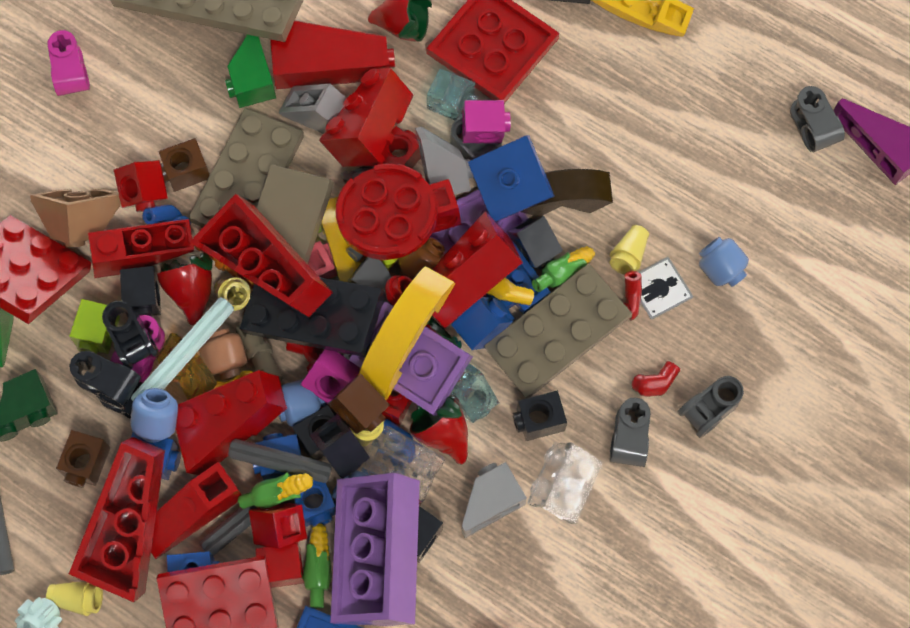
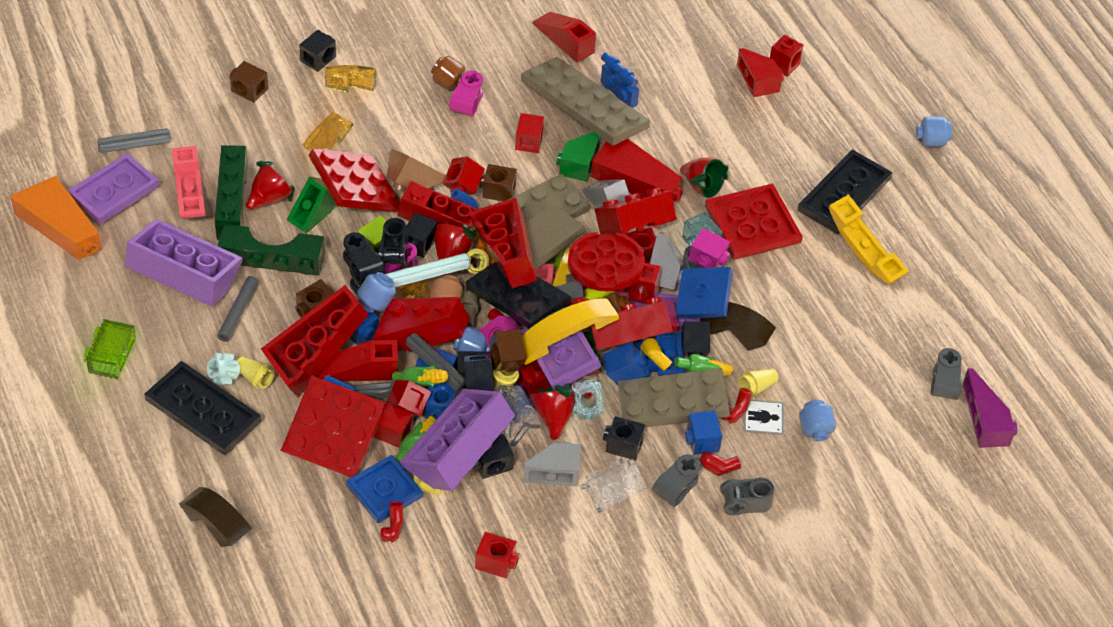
camera: 30 degrees right, 20 degrees down
(25, 48) = (447, 72): none -> dark orange head
(173, 74) = (529, 133): none -> red brick
(618, 355) = (703, 432): none -> blue brick

